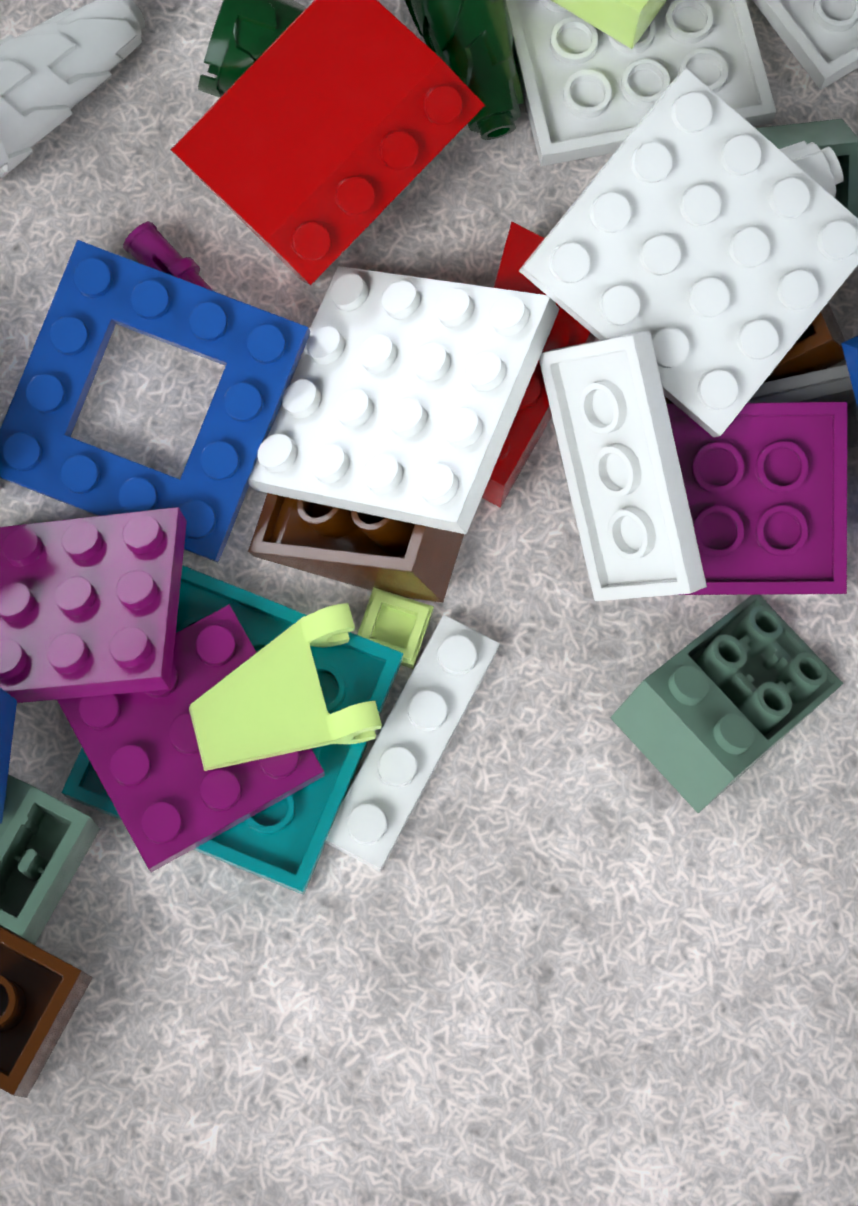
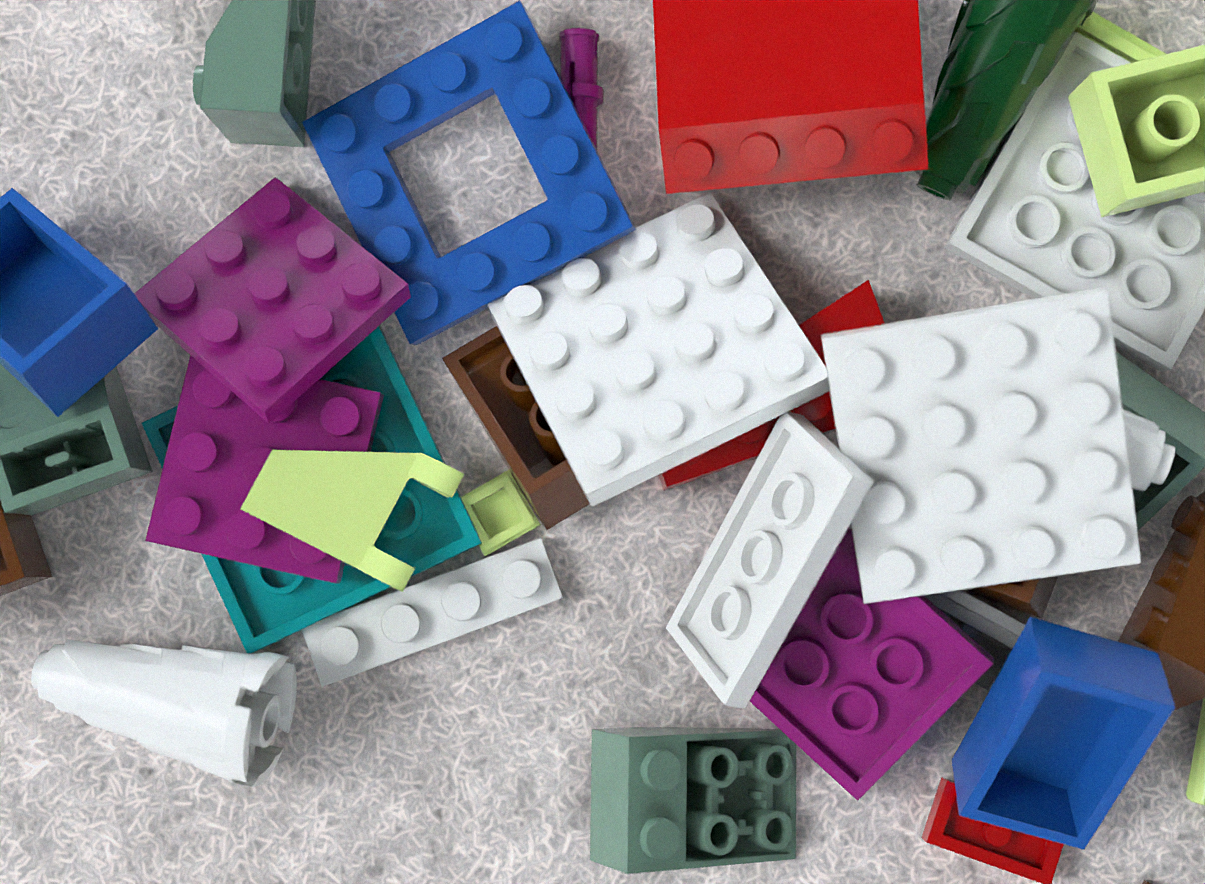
camera: 45 degrees right, 10 degrees up
(284, 969) = (181, 703): none -> white cone

